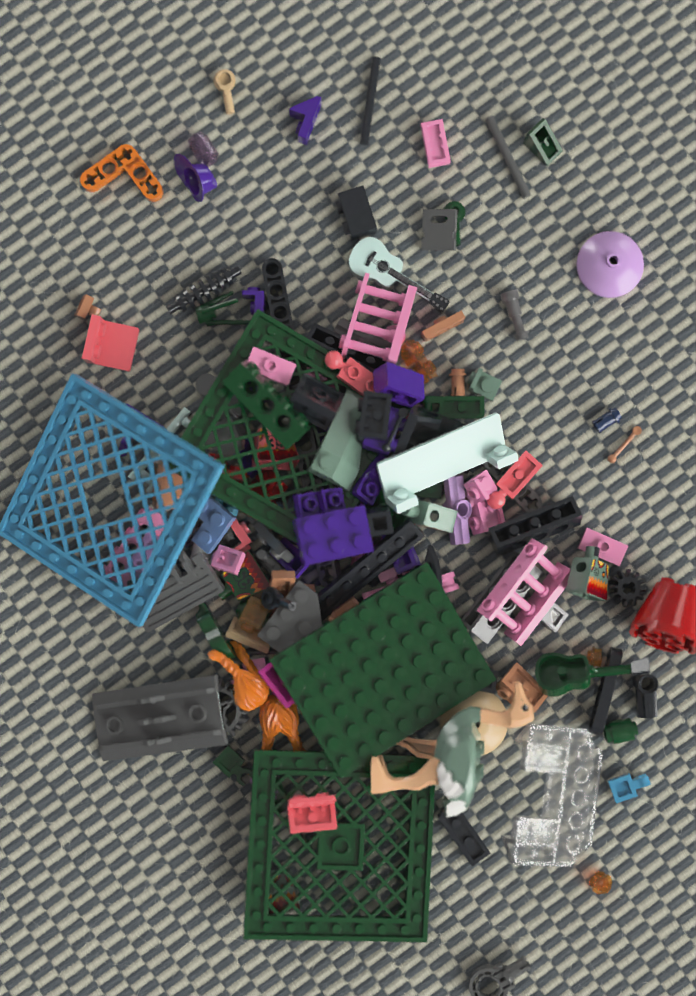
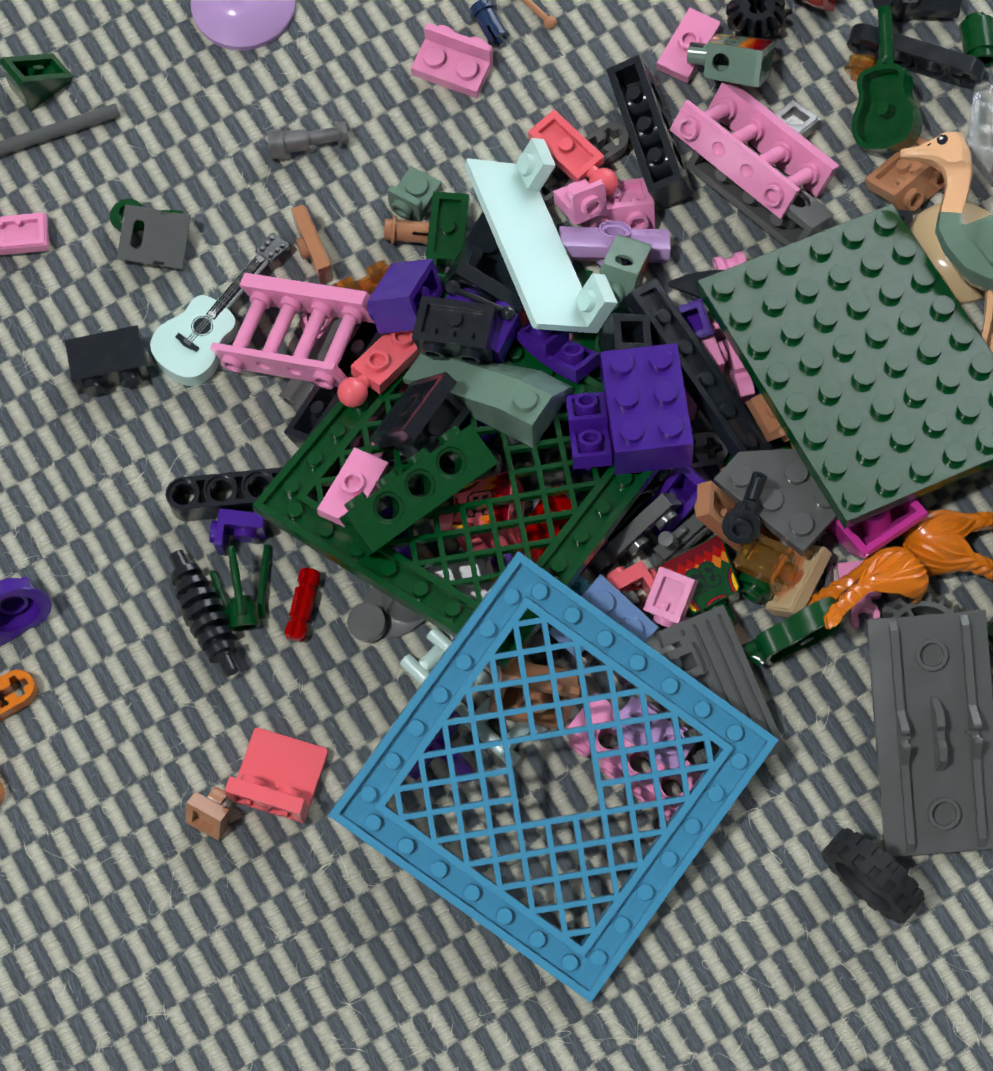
camera: 80 degrees left, 15 degrees down
(70, 685) = (873, 875): none -> black tyre
(213, 346) = (302, 604): none -> red axle
(577, 400) = (453, 60): none -> bright pink bracket

